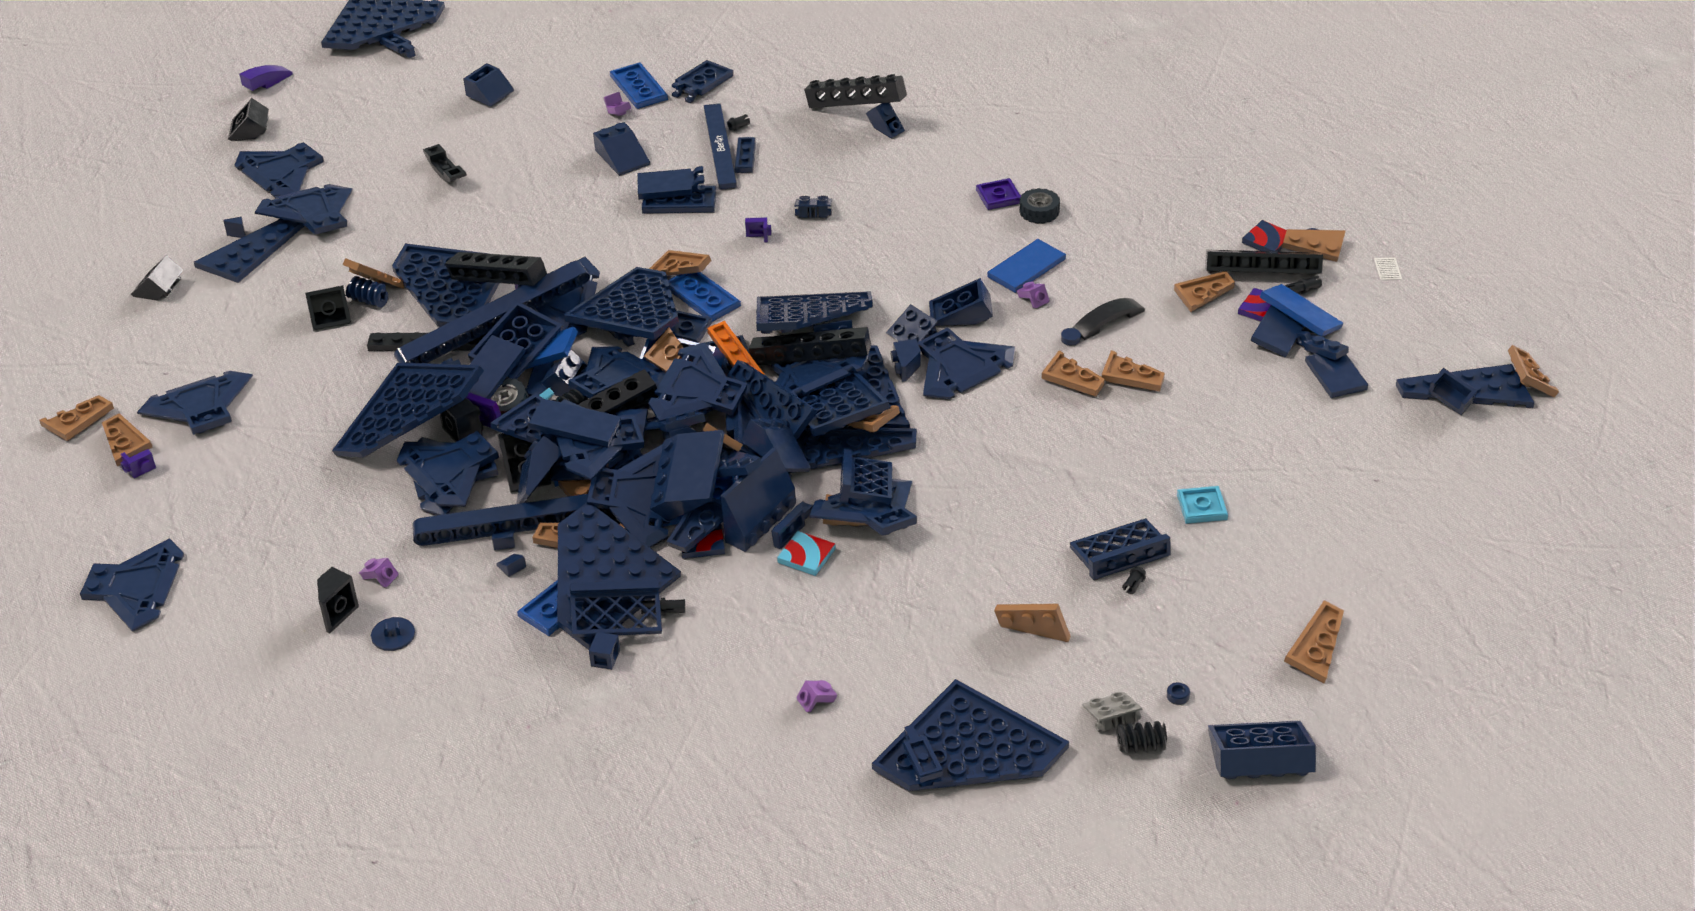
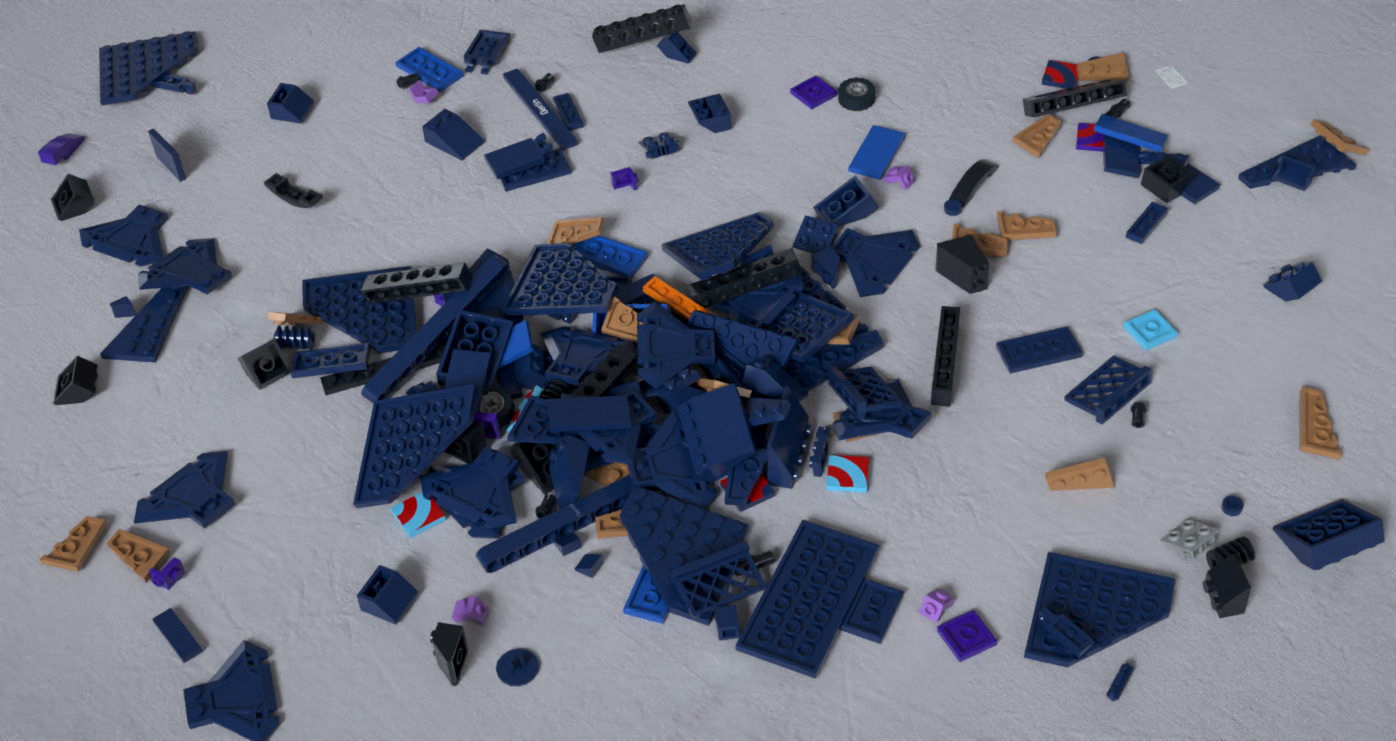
camera: 20 degrees left, 5 degrees up
(116, 517) = (177, 635): none -> dark blue tile
(311, 534) = (386, 595): none -> dark blue slope
(350, 104) = (167, 154): none -> dark blue tile
(384, 476) = (417, 514): none -> tile
(387, 320) = (330, 360): none -> dark blue tile
(503, 500) = (546, 506): none -> black pin
(607, 90) = (408, 80): none -> black pin
(695, 652) = (807, 598): none -> dark blue plate
(699, 332) = (633, 291): none -> dark blue tile
(751, 683) = (872, 611): none -> dark blue tile
(828, 732) = (966, 636): none -> dark purple tile
(879, 188) = (711, 113): none -> dark blue slope
(953, 820) = (1120, 682): none -> dark blue axle
(967, 470) = (945, 356): none -> black brick
(1039, 388) = (963, 263): none -> black slope
(1073, 492) = (1038, 349): none -> dark blue tile
(1113, 765) = (1227, 587): none -> black slope
(1264, 401) = (1146, 222): none -> dark blue plate
(1310, 363) = (1167, 178): none -> black slope
(1384, 497) = (1293, 281): none -> dark blue slope

